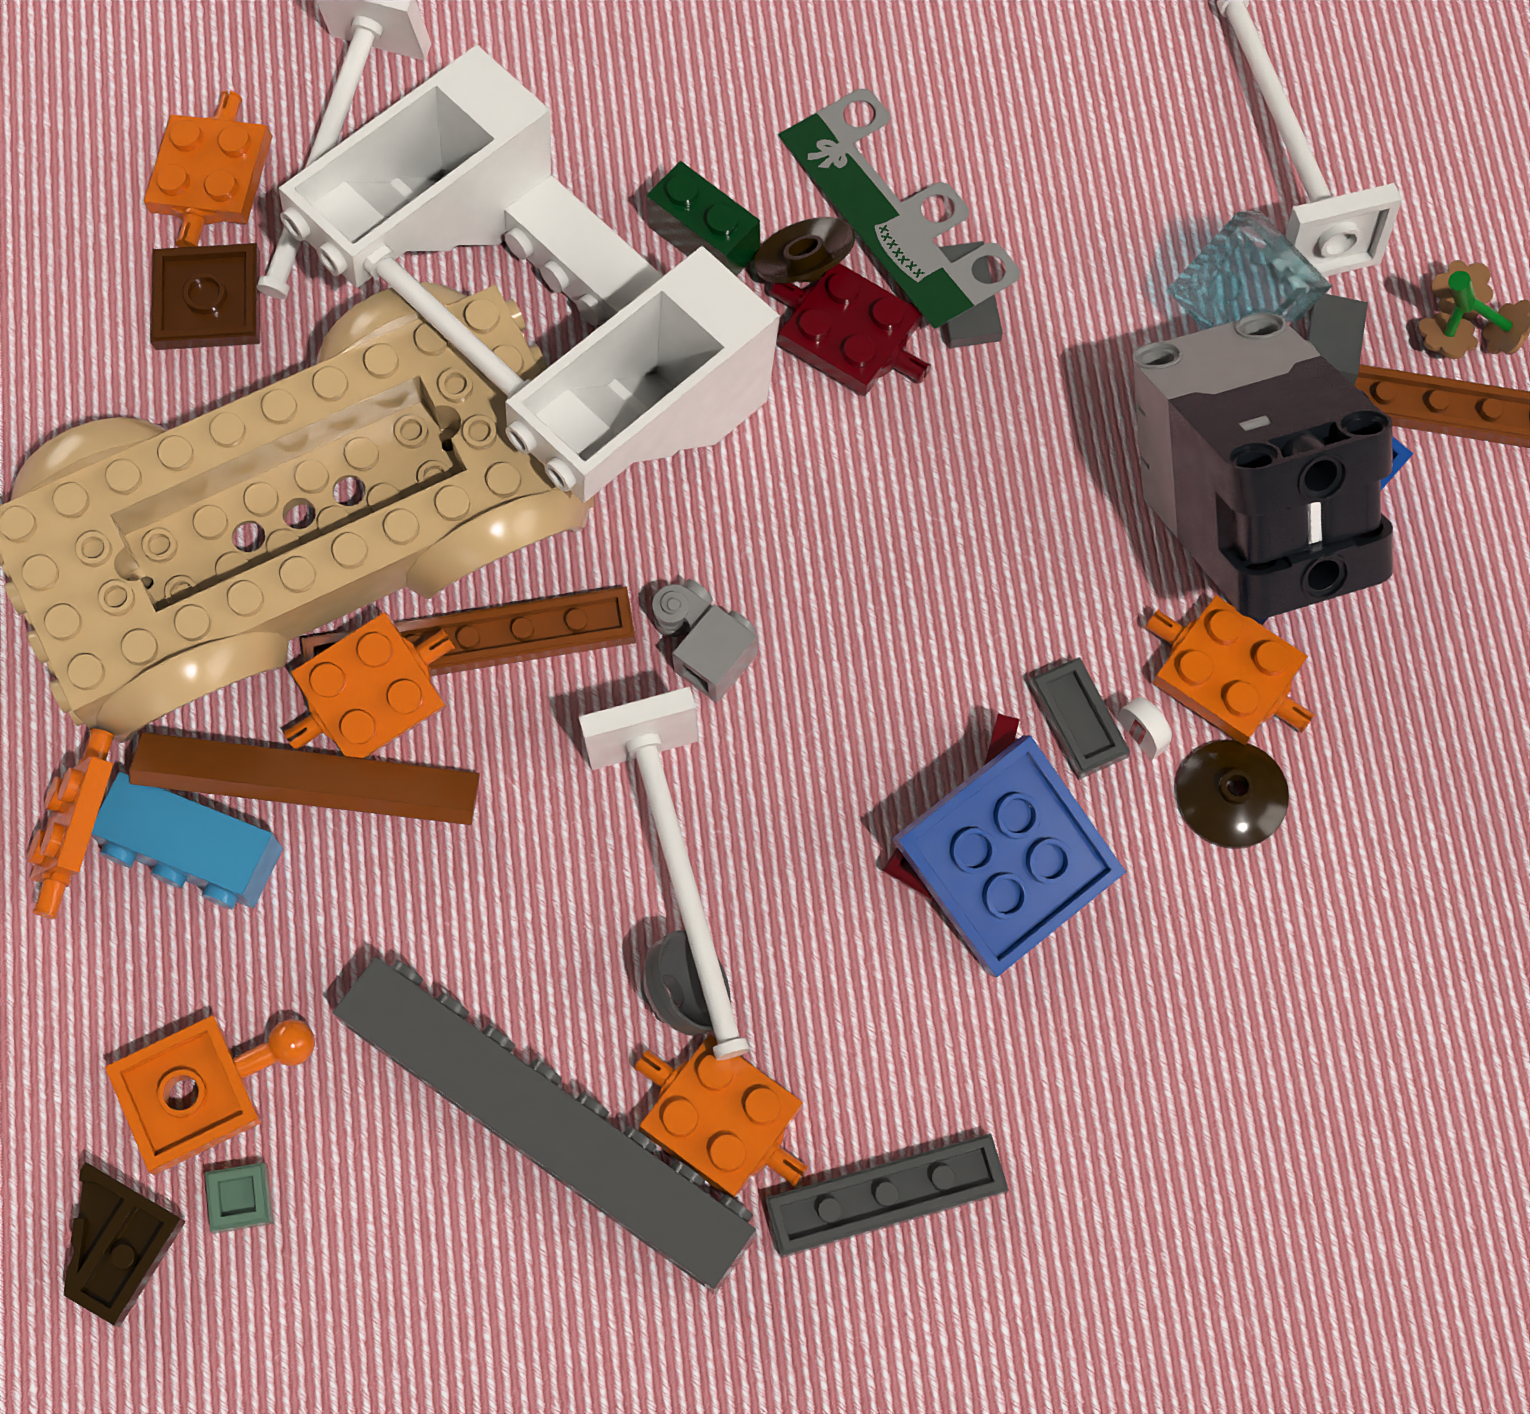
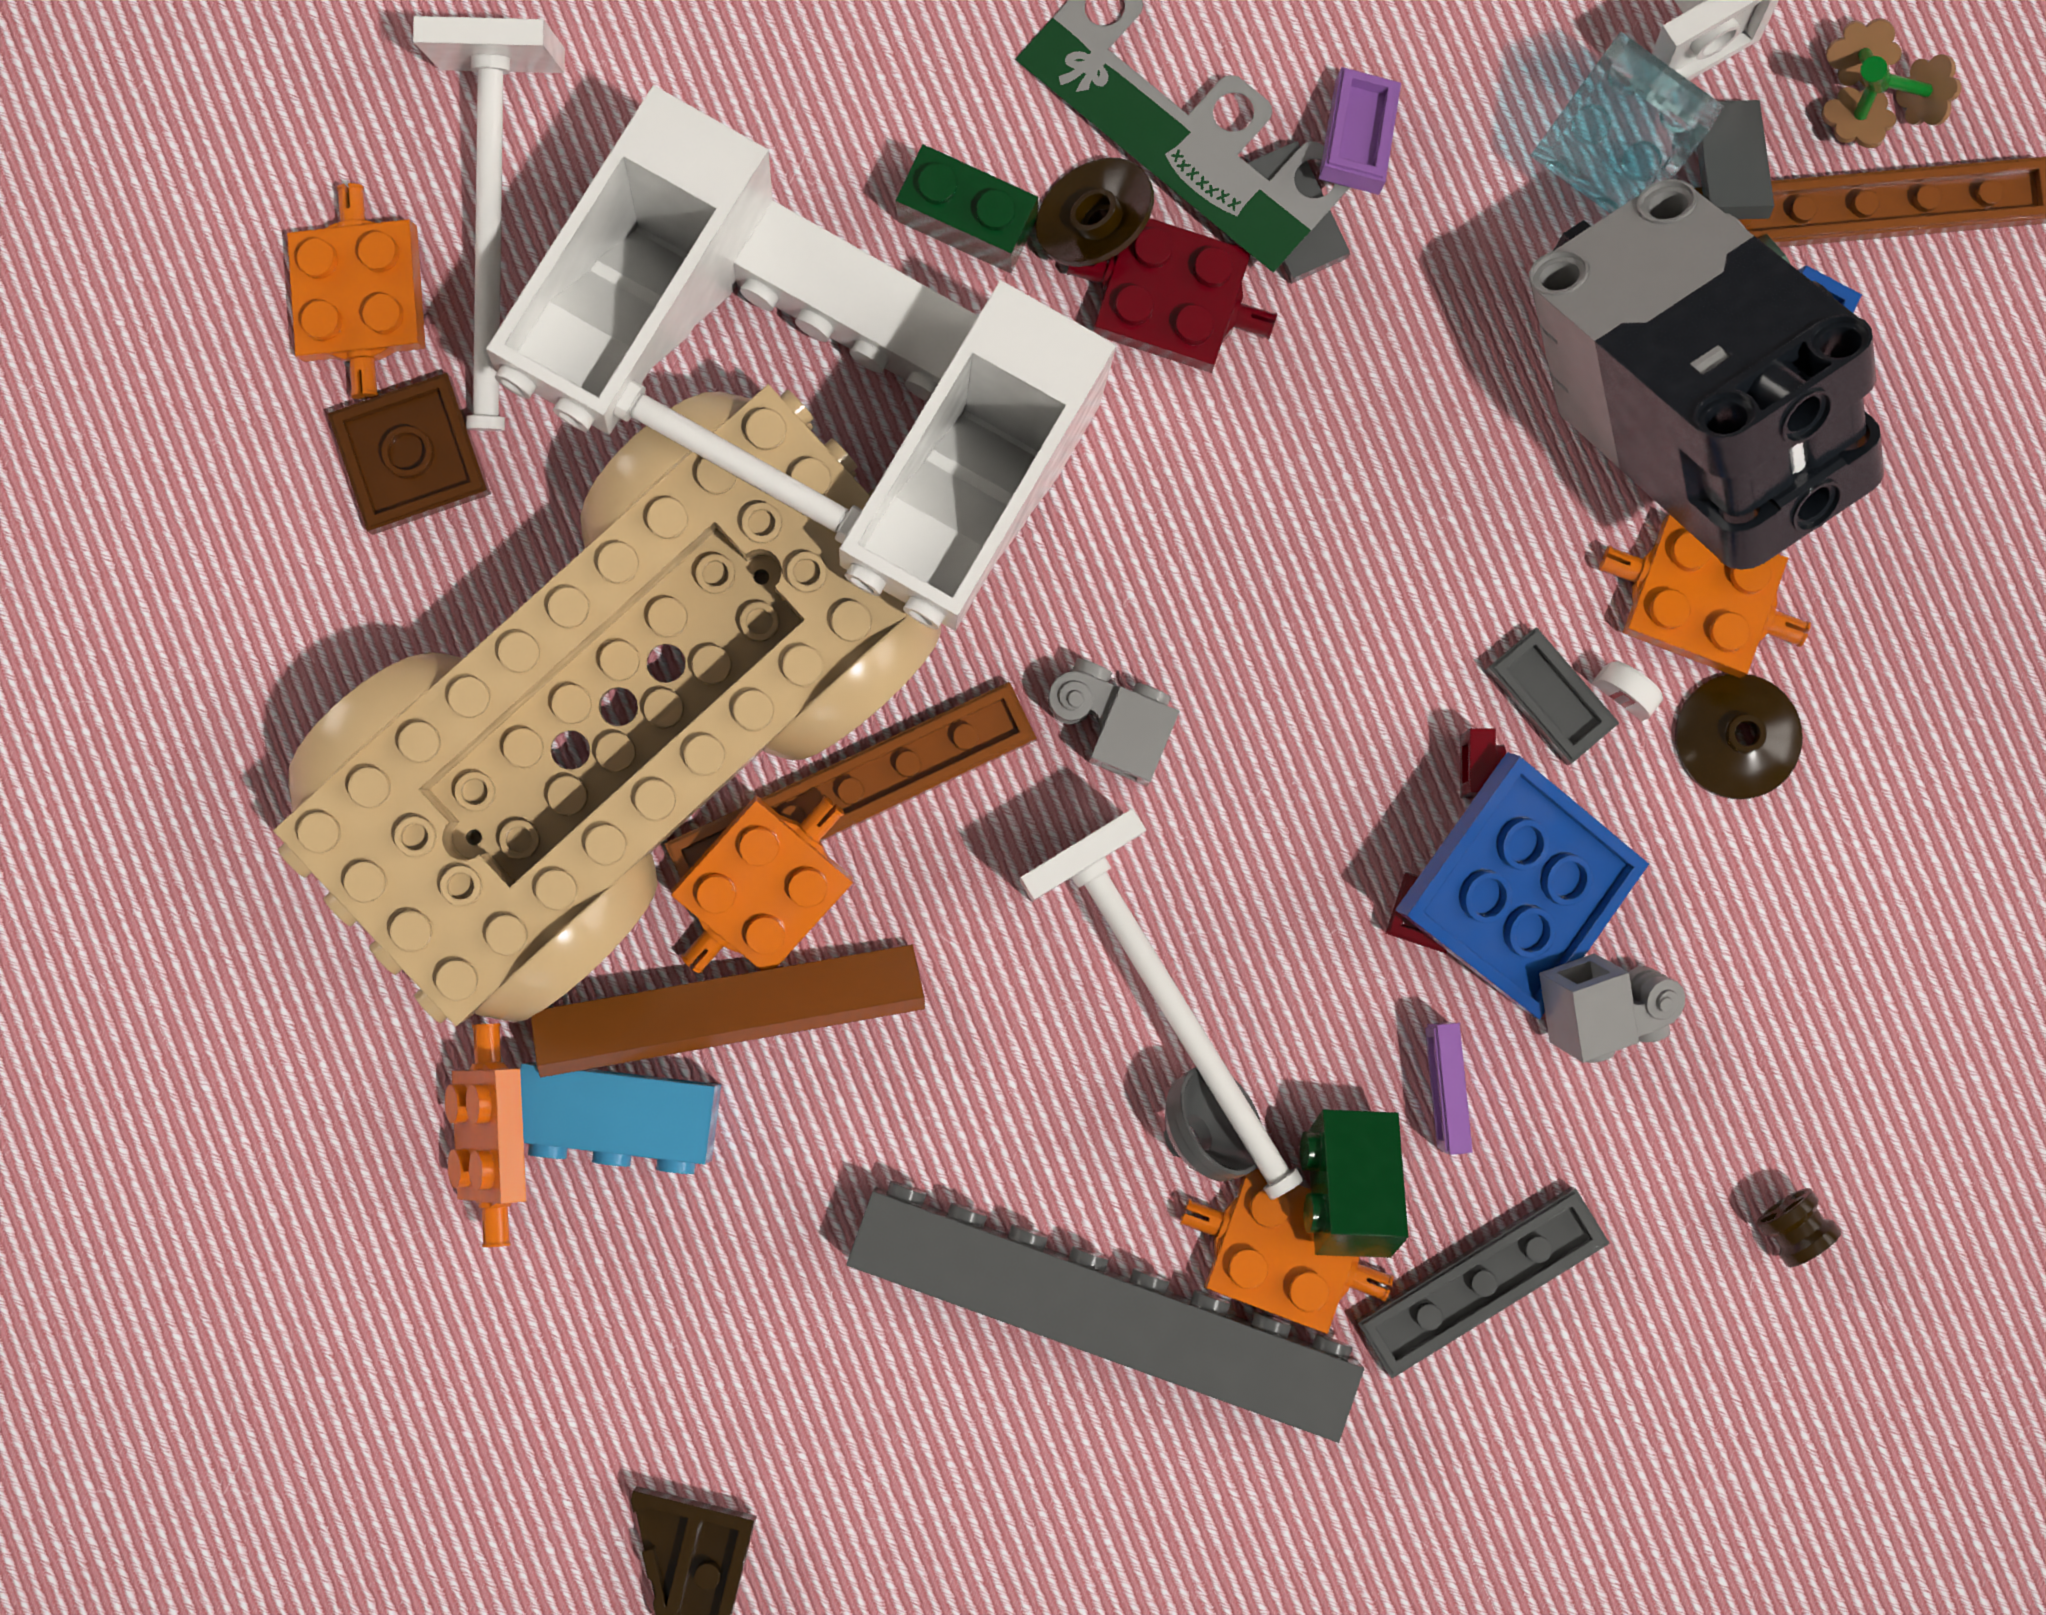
camera: 20 degrees left, 15 degrees up
(223, 1100) = (756, 1382): orange plate -> none
(239, 1198) = (804, 1476): sand green tile -> none
(794, 1067) = (1355, 1183): none -> dark green brick
(900, 1012) = (1448, 1088): none -> medium lavender tile
(1034, 243) = (1360, 131): none -> medium lavender tile
(1046, 979) = (1603, 1008): none -> light grey brick
(1182, 1221) = (1799, 1227): none -> dark brown wheel

